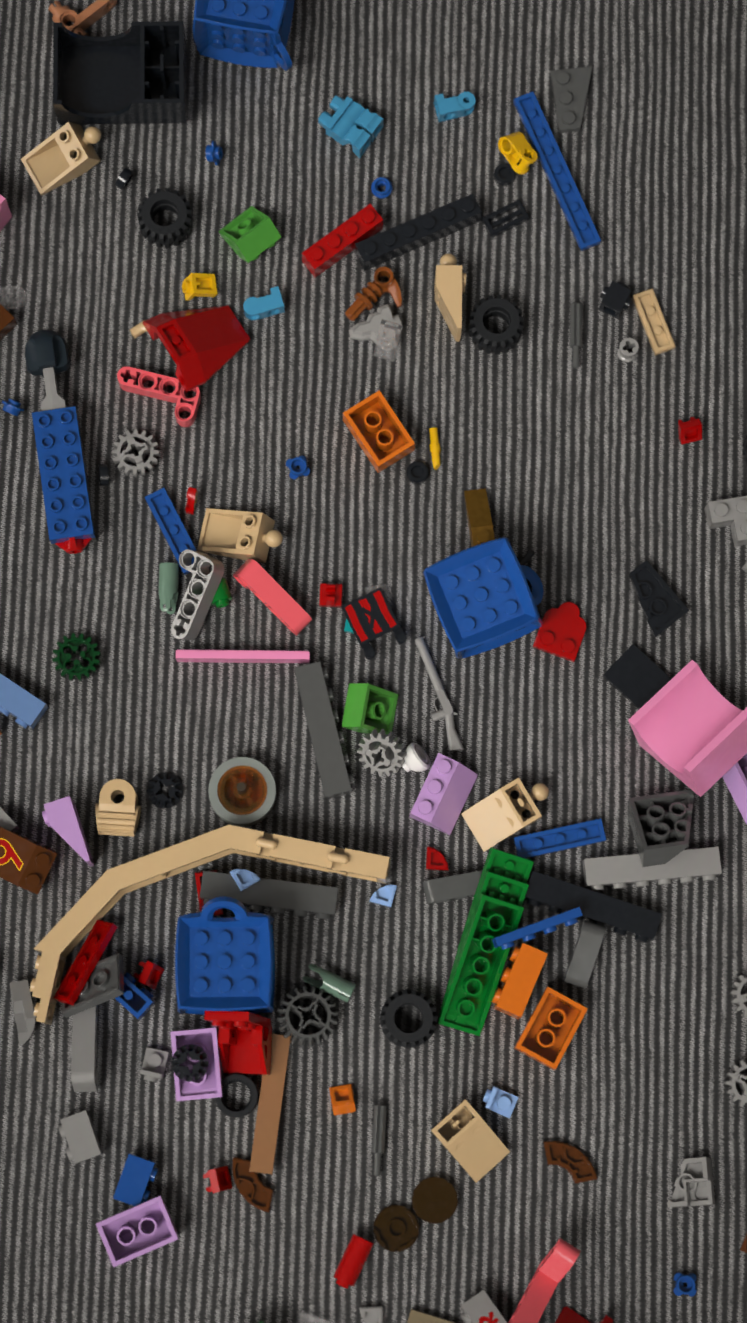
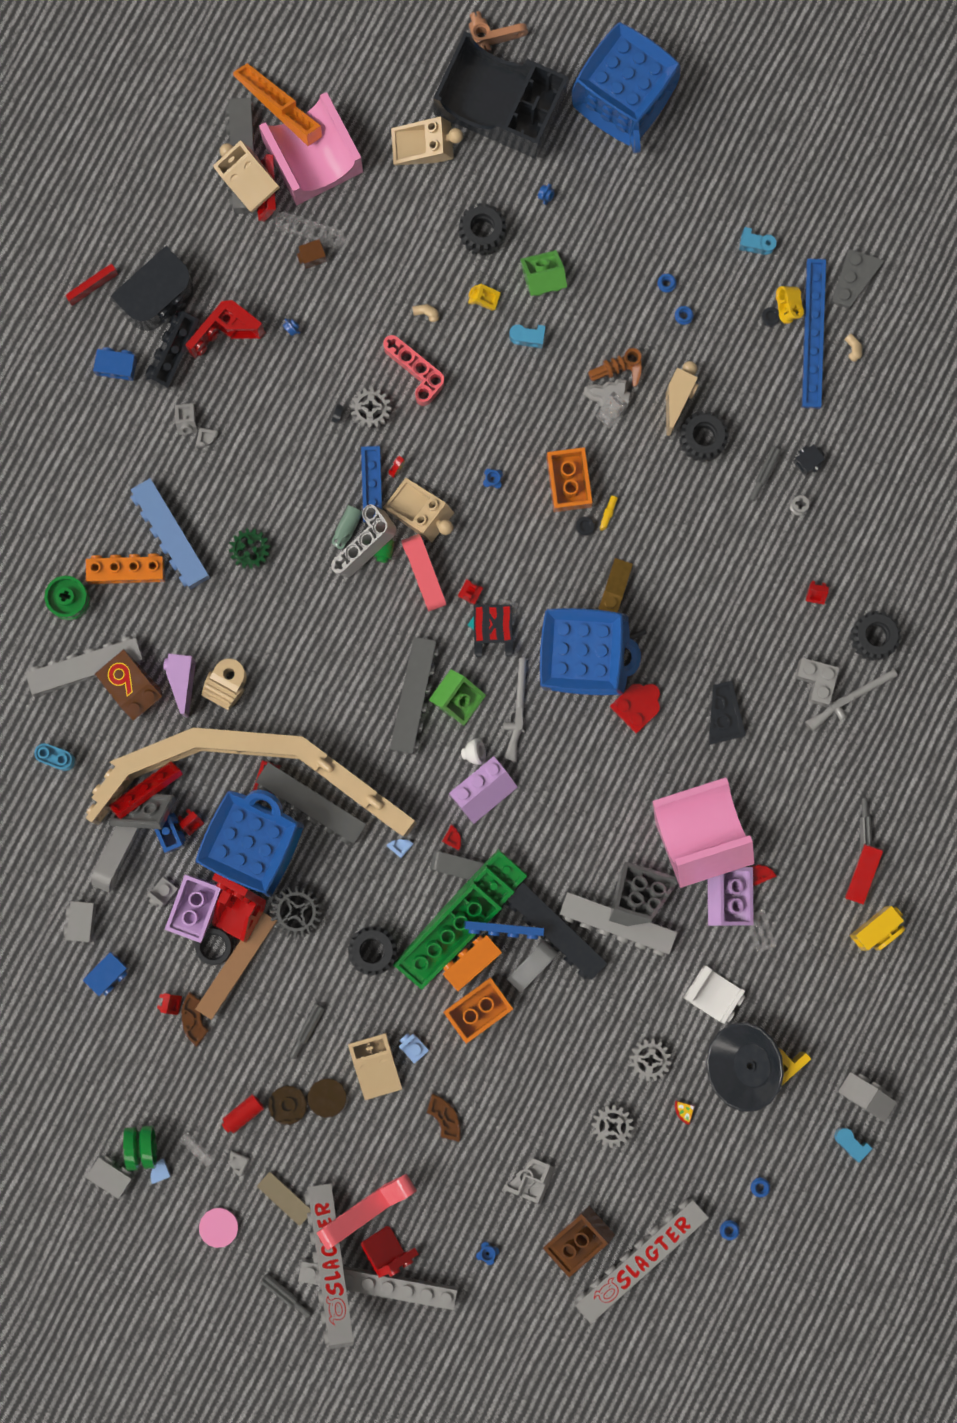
camera: 25 degrees right, 5 degrees up
(22, 1009) = (81, 803): light grey slope -> none
(60, 449) = (312, 378): blue piece -> none
(124, 178) = (465, 182): black tile -> none
(137, 1231) = (89, 1013): lavender slope -> none
(161, 800) = (276, 691): black gear -> none
(198, 341) = (461, 341): red wedge -> none
(199, 1069) = (195, 900): black gear -> none
(242, 791) = (328, 714): wheel -> none
(243, 656) = (378, 608): bright pink tile -> none
(244, 878) = (296, 783): light blue tile -> none
(331, 983) = (326, 895): sand green piece -> none
(342, 240) = (614, 312): red brick -> none
(342, 1099) = (293, 987): orange slope -> none
(345, 123) = (663, 216): dark azure hips -> none
(392, 754) = (450, 735): light grey gear -> none
(414, 206) = (684, 309): none -> blue plate
(418, 232) = (678, 333): black brick -> none
(489, 227) = (757, 353): black tile -> none
(501, 816) = (520, 828): tan slope -> none
(560, 839) = (557, 867): blue plate -> none
(607, 165) = (856, 347): none -> tan arm
(636, 676) = (679, 769): black tile -> none
(653, 322) = (831, 492): tan tile -> none

